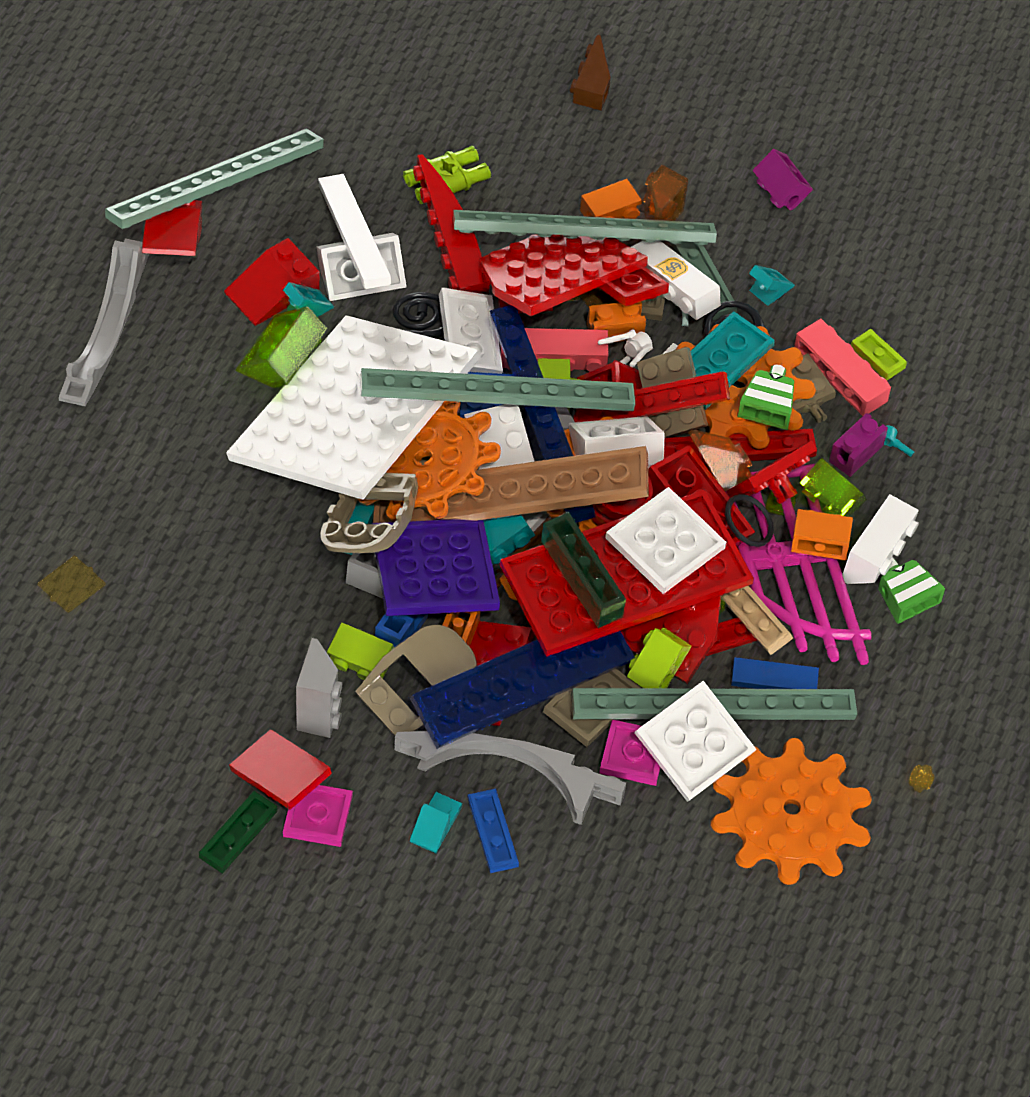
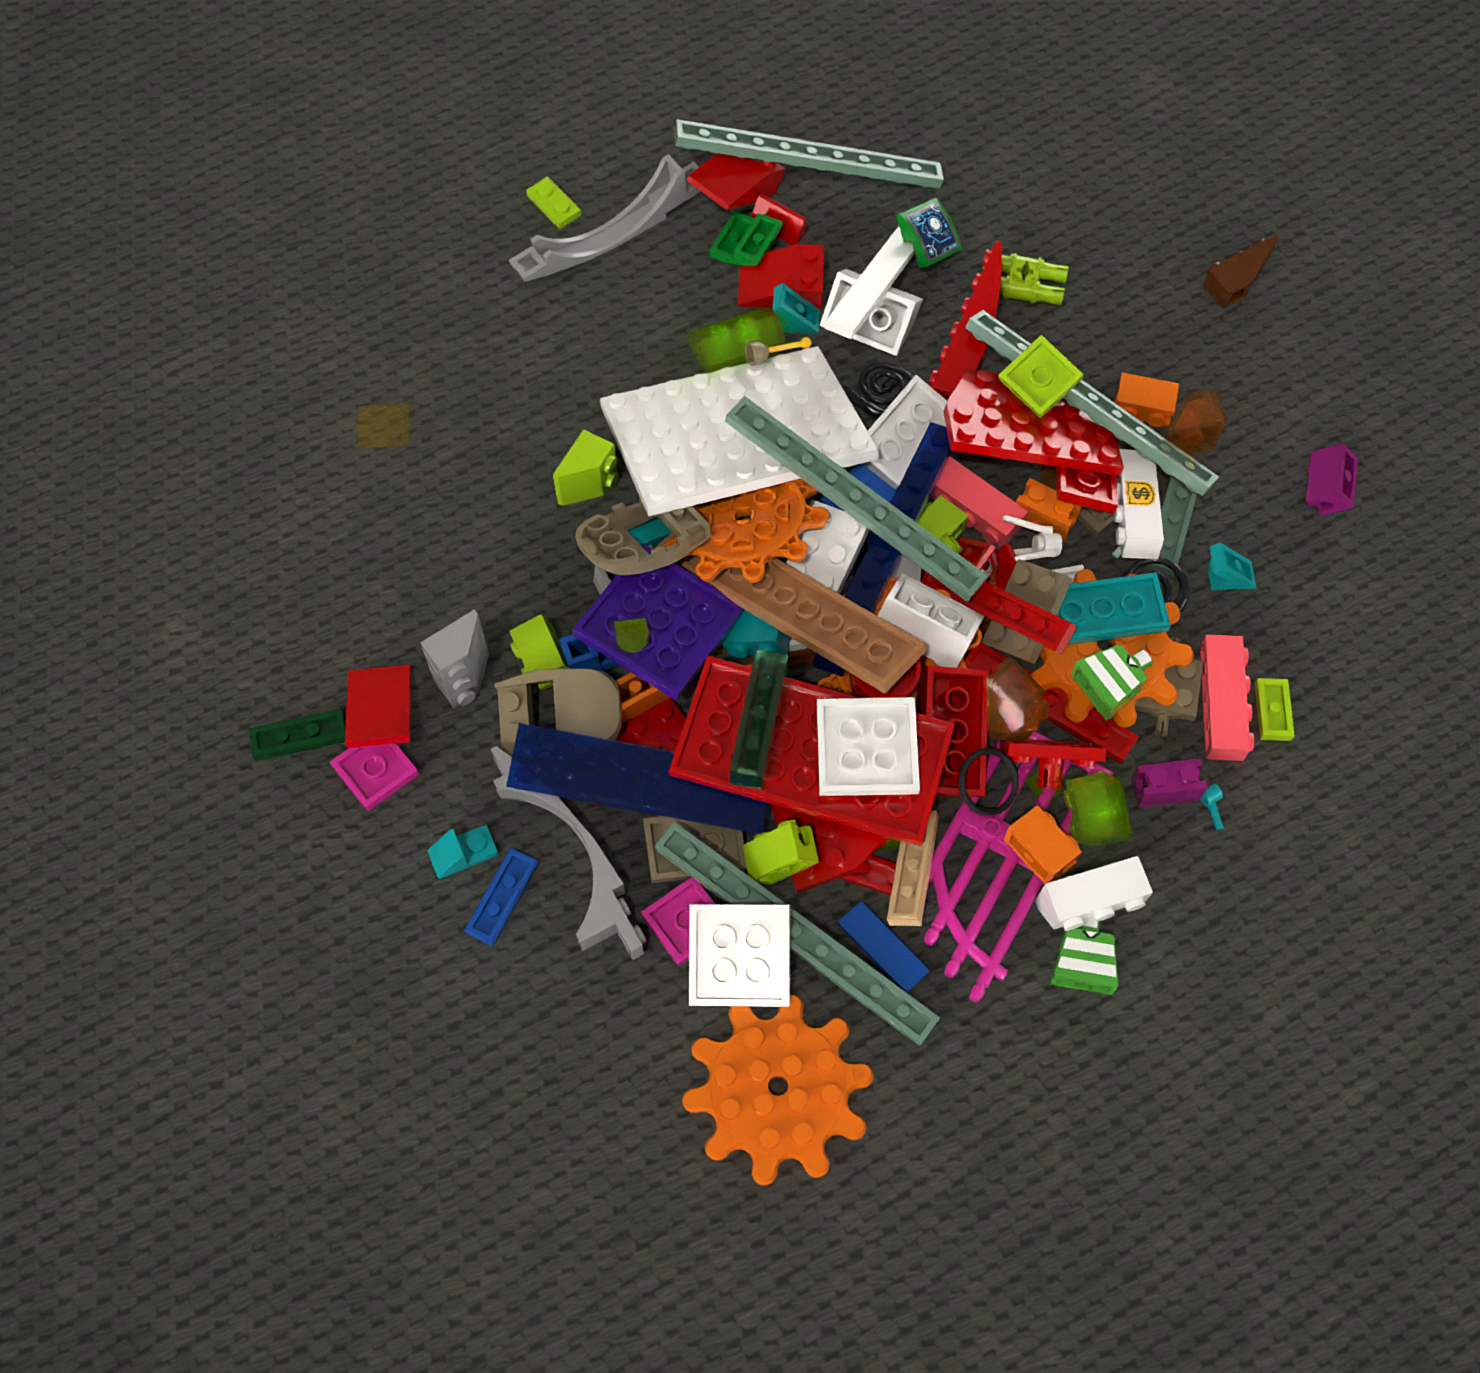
camera: 45 degrees right, 10 degrees up
(36, 338) = (553, 202): none -> lime plate
(218, 272) = (745, 239): none -> green slope
(227, 243) = (793, 223): none -> red slope
(271, 504) = (586, 470): none -> lime slope
(315, 343) = (758, 352): none -> dark tan hinge
(352, 178) = (929, 231): none -> slope
(431, 584) = (631, 634): none -> clear neon green tile
(542, 228) = (1040, 376): none -> lime plate
(921, 778) = (925, 1155): clear yellow plate -> none

